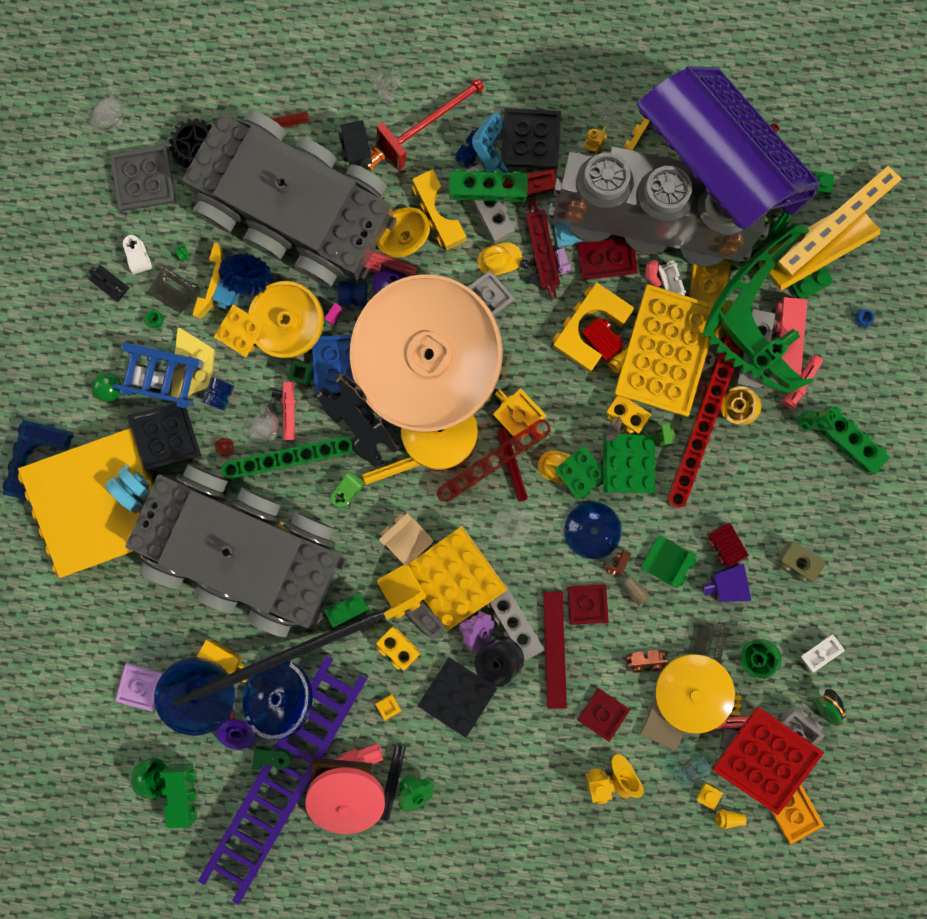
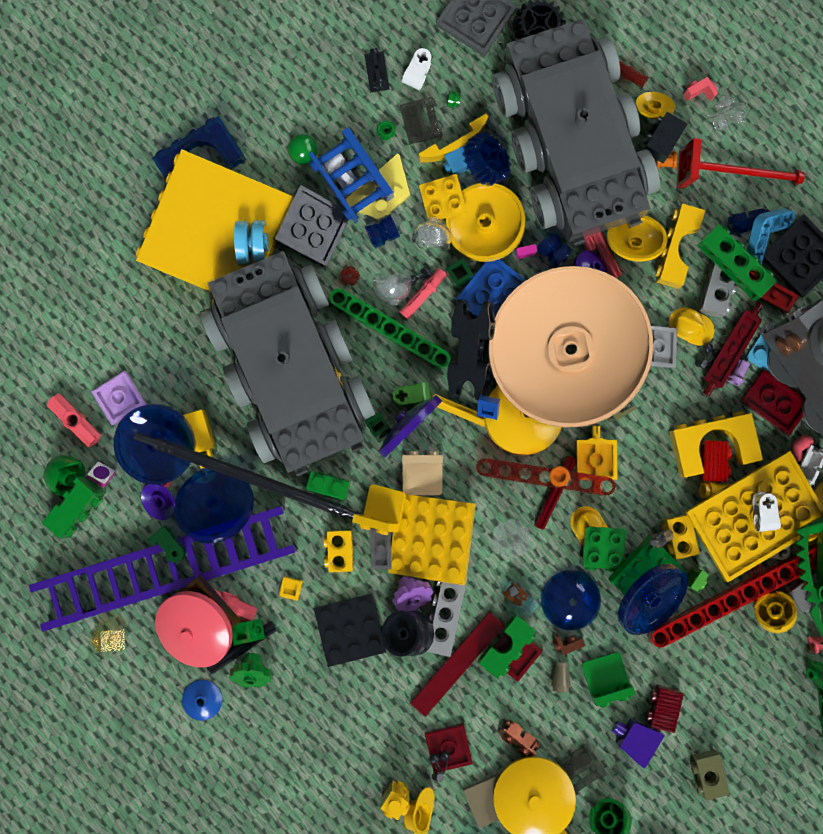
camera: 45 degrees right, 0 degrees up
(110, 733) = (65, 412): none -> coral piece
(177, 753) = (100, 474): none -> tile
(255, 363) = (432, 234): none -> clear cylinder
(293, 866) = (109, 640): none -> clear yellow bracket
(328, 126) = (654, 104): none -> yellow dish
(343, 535) = (378, 426): none -> dark green leg
(347, 88) = (696, 88): none -> coral bracket
(361, 514) = (407, 423): none -> dark purple dish
(385, 766) = (248, 632): none -> green bracket
(399, 835) = (209, 693): none -> blue dish
(408, 449) = (488, 407): none -> blue plate
(502, 451) = (559, 476): none -> orange tile
(556, 562) = (520, 598): none -> leg
(580, 621) = (498, 661): none -> green arch
(599, 731) = (434, 758): none -> black piece
(646, 477) = (652, 599): none -> clear blue dish
(671, 345) = (766, 514): none -> white piece

